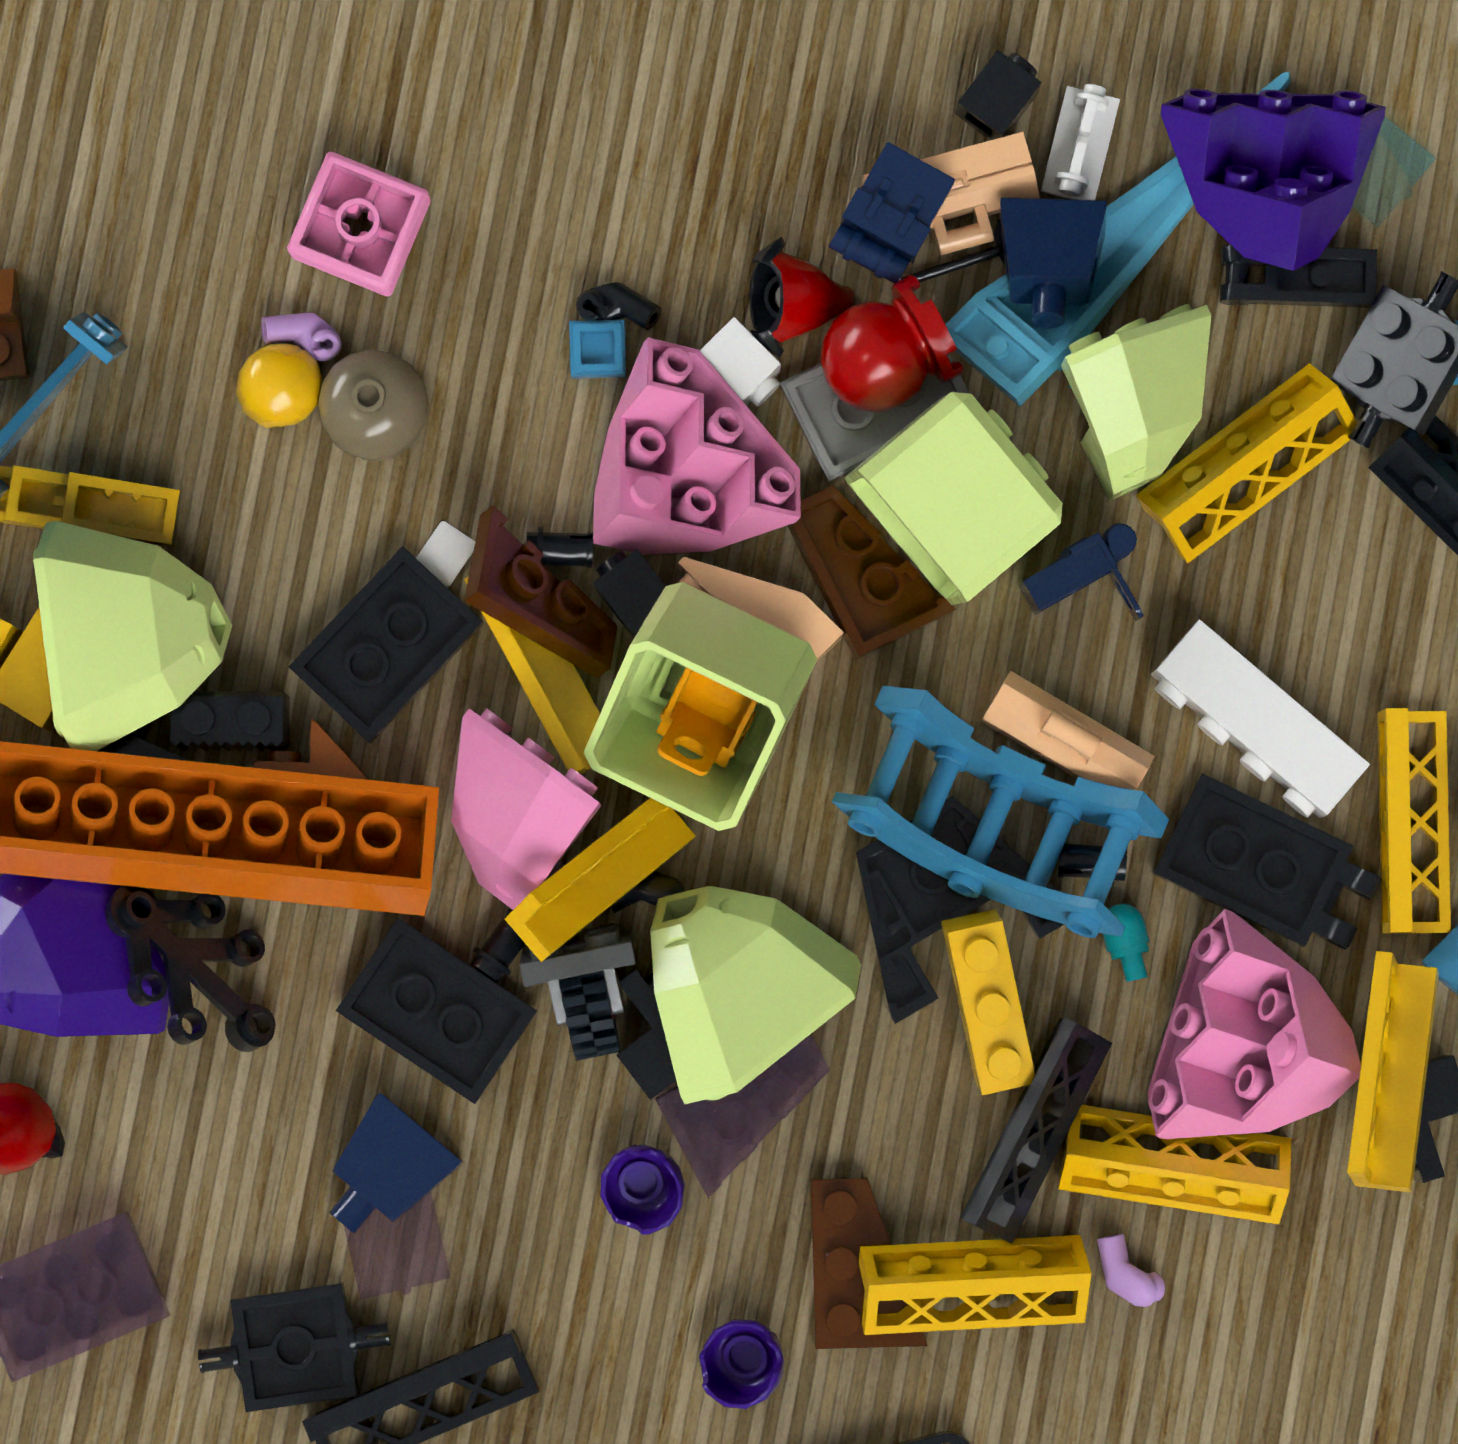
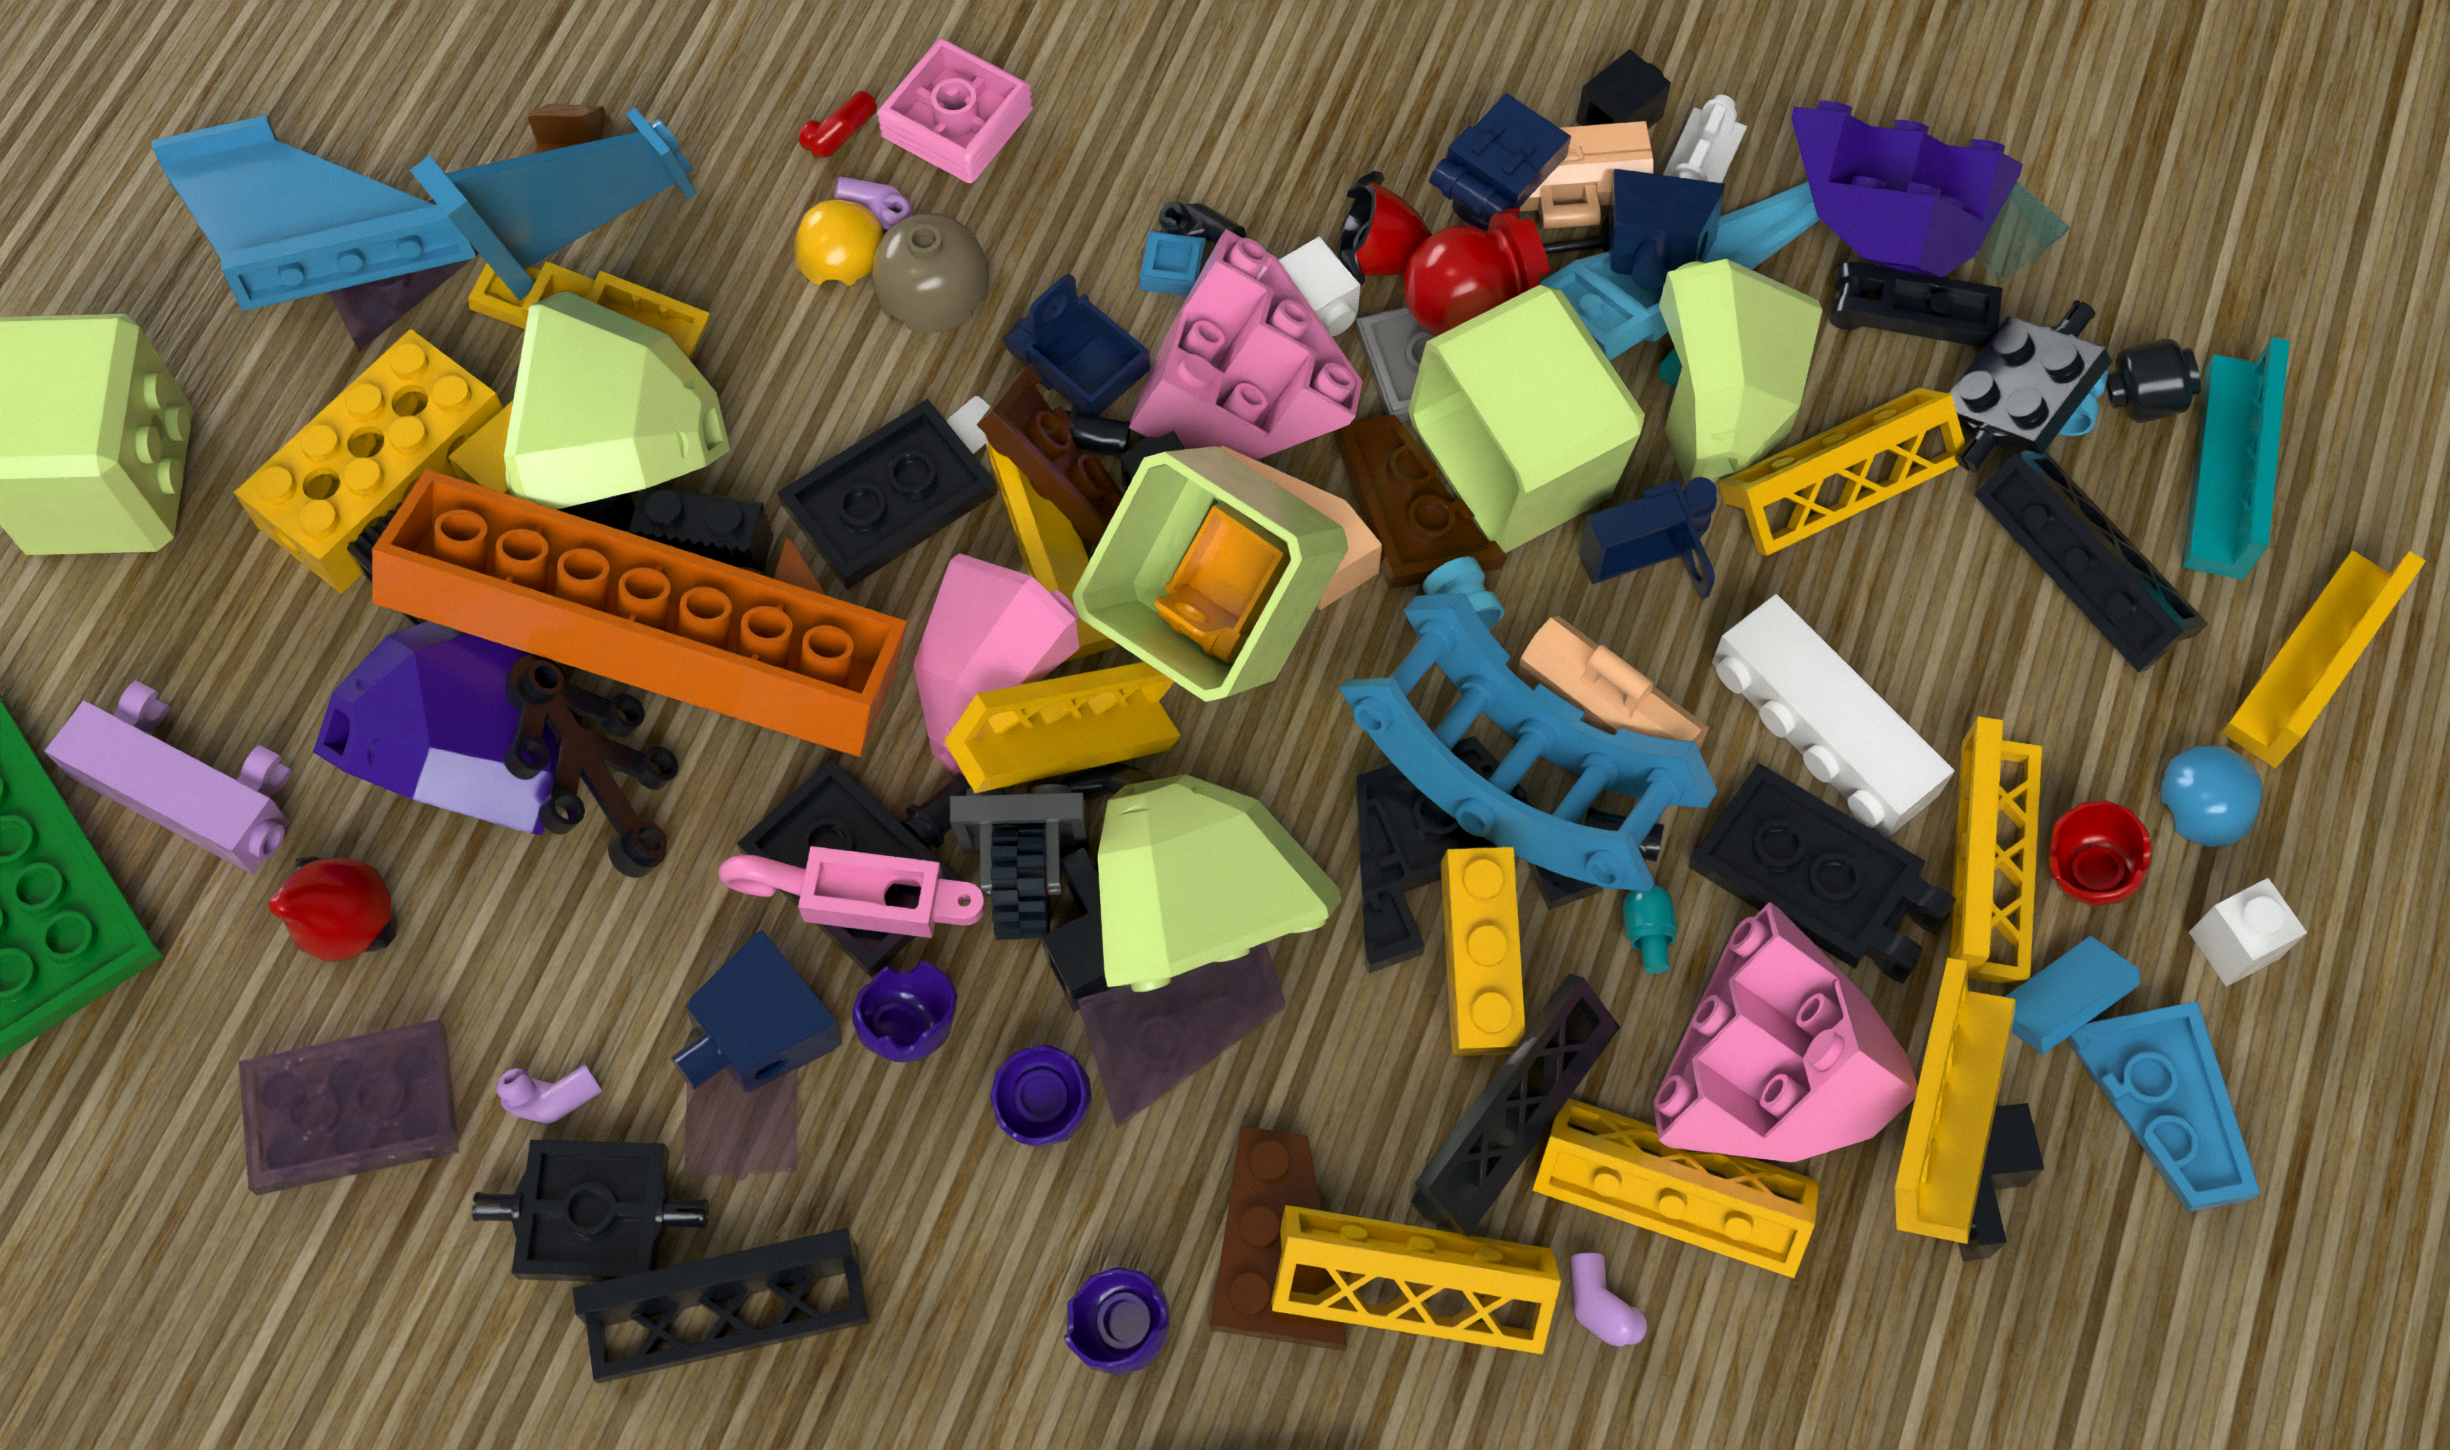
camera: 10 degrees right, 20 degrees down
(229, 1259) = (543, 1100): none -> lavender arm
(253, 253) = (833, 132): none -> red arm
(449, 1041) = (851, 890): none -> bright pink piece
(514, 1136) = (905, 1012): none -> dark purple hair
(527, 465) = (1077, 348): none -> dark blue piece
(922, 660) = (1467, 577): none -> medium azure wheel

